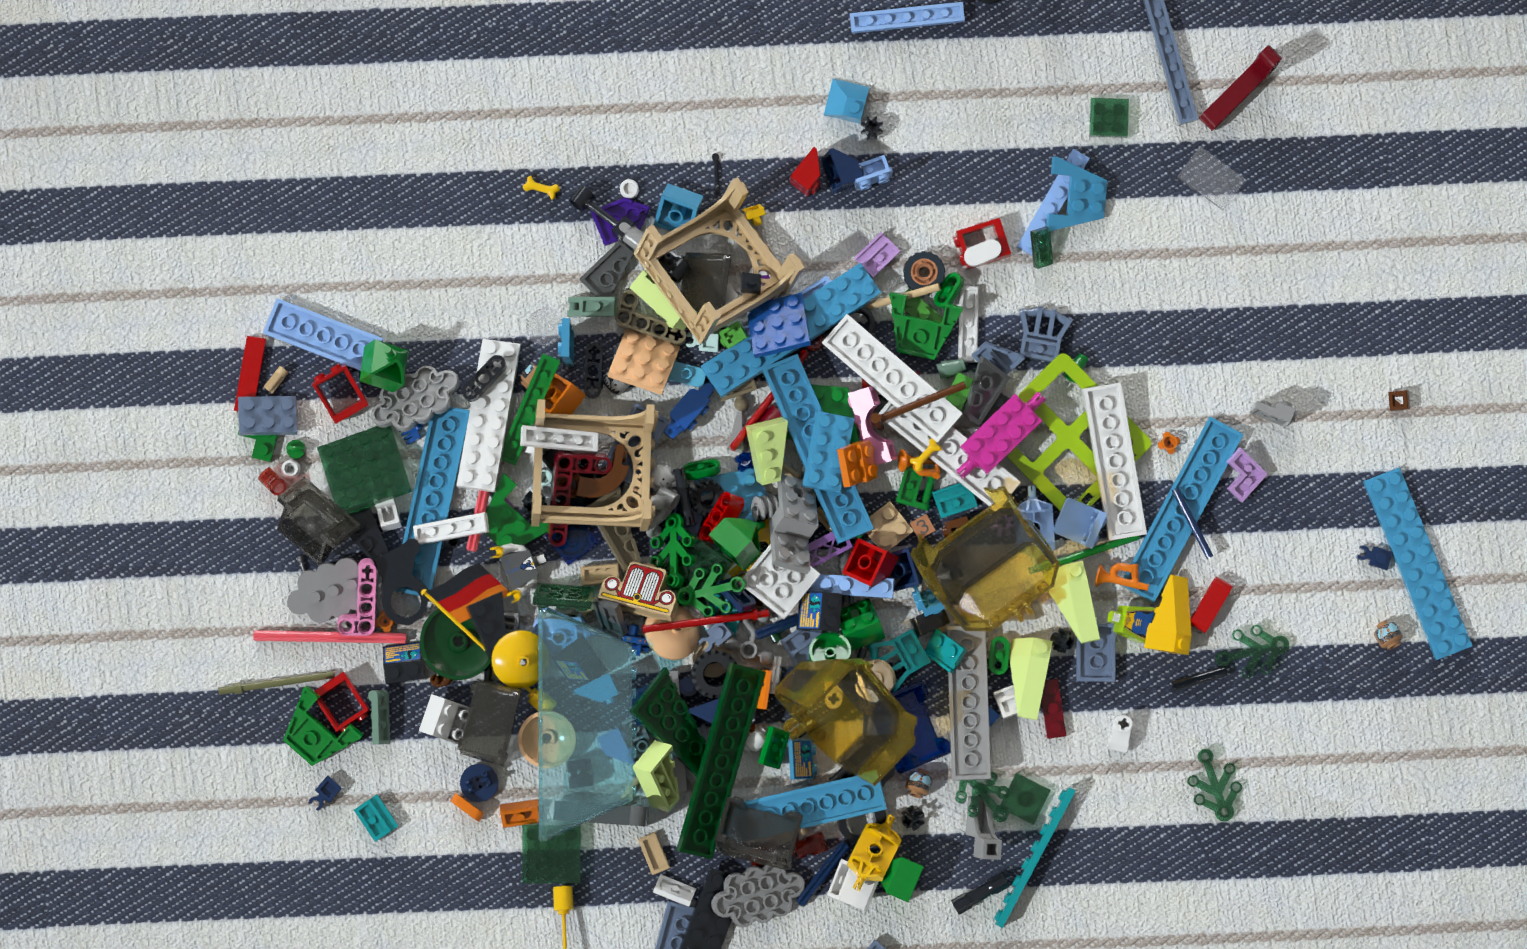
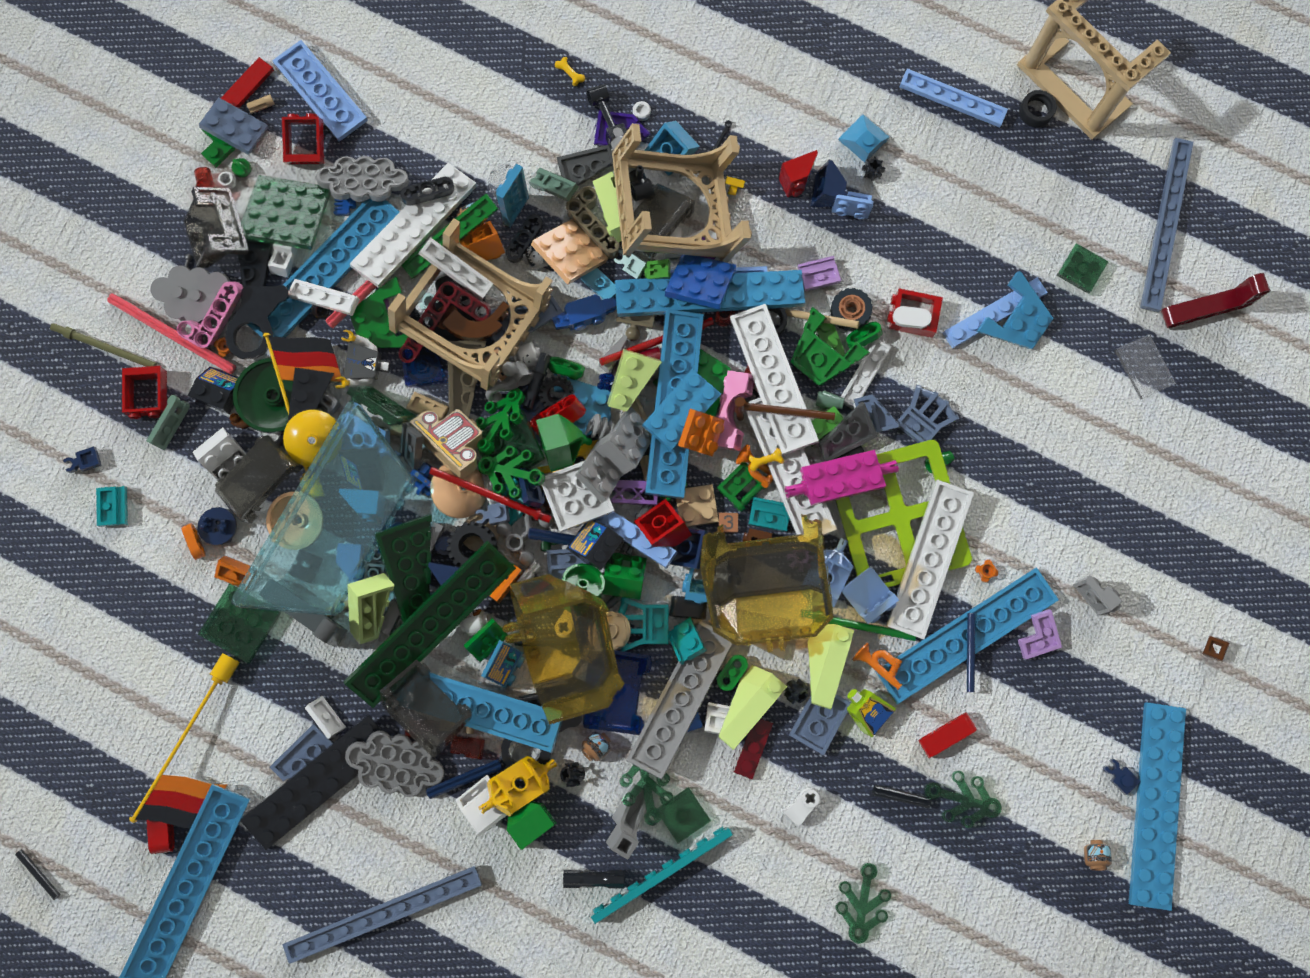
camera: 25 degrees right, 5 degrees down
(311, 737) = (100, 406): green wing -> none
(384, 365) = (351, 135): green piece -> none
(654, 853) = (328, 674): tan tile -> none
(750, 283) = (697, 232): black plate -> none
(1041, 247) = (965, 342): clear green plate -> none
(1172, 623) = (903, 732): yellow wedge -> none

